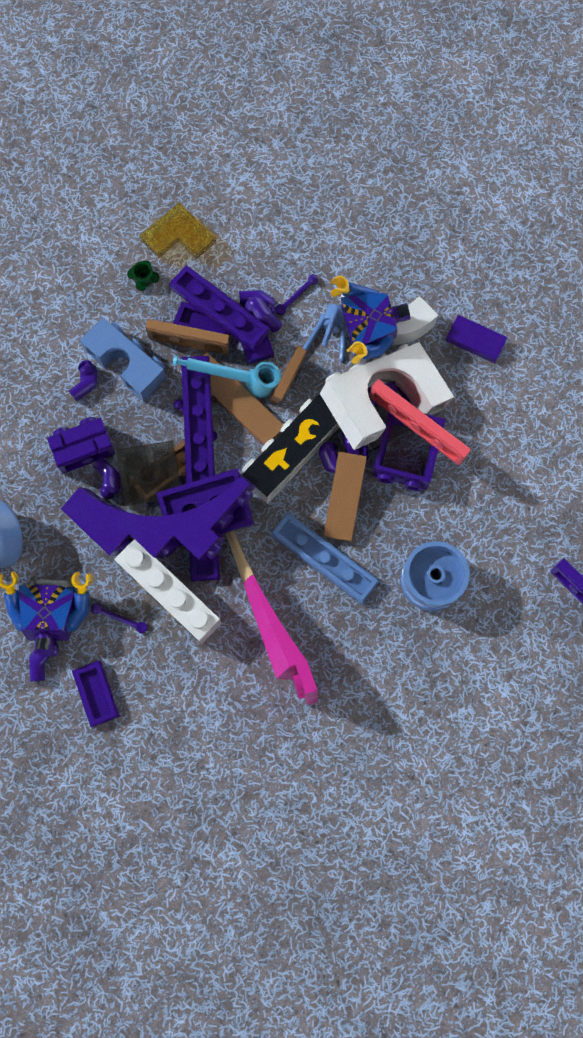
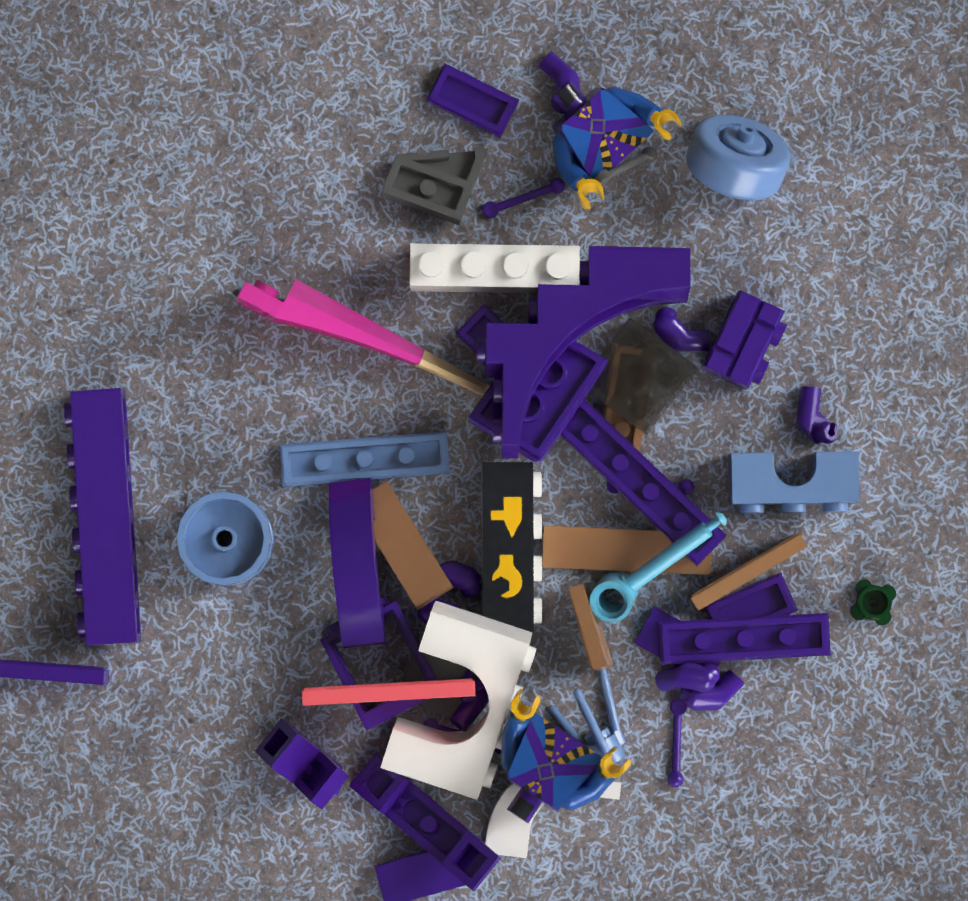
camera: 135 degrees right, 10 degrees up
(155, 666) = (435, 182): none -> dark grey wing
(176, 227) = (892, 697): clear yellow plate -> none
(376, 505) = (355, 563): none -> dark purple slope
(452, 353) = (426, 822): none -> dark purple slope
(487, 647) = (104, 517): none -> dark purple brick
(490, 434) = (302, 763): none -> dark purple brick

